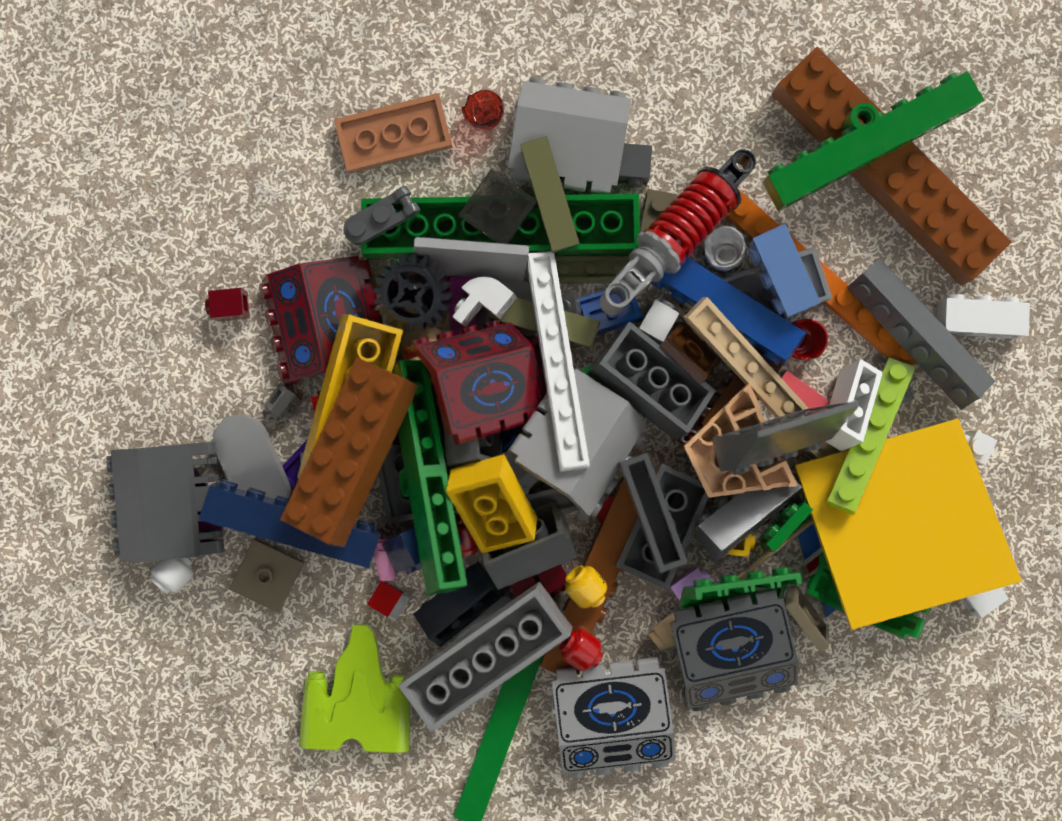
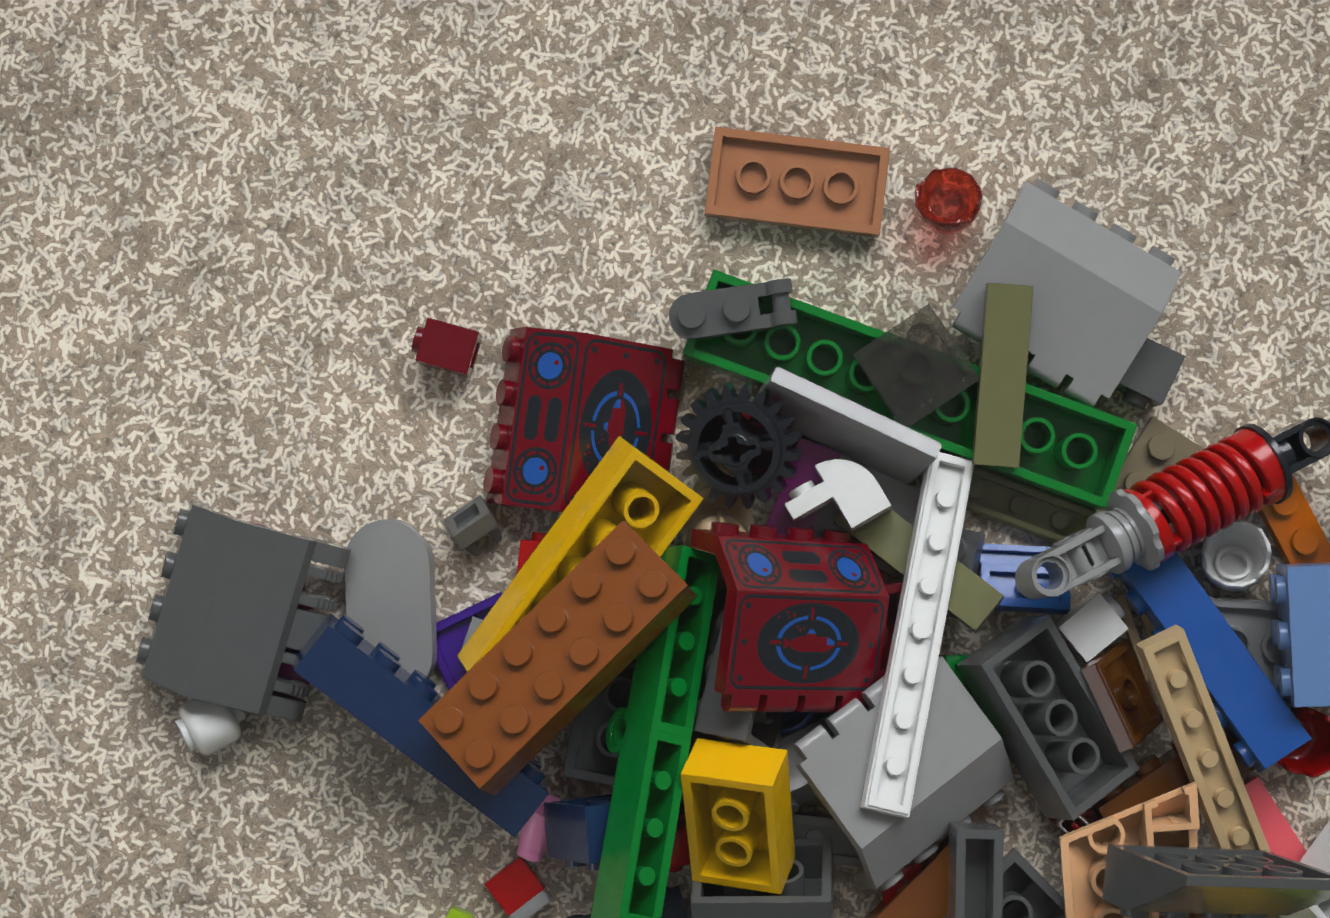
camera: 20 degrees right, 0 degrees up
(266, 575) = (348, 780): dark tan plate -> none

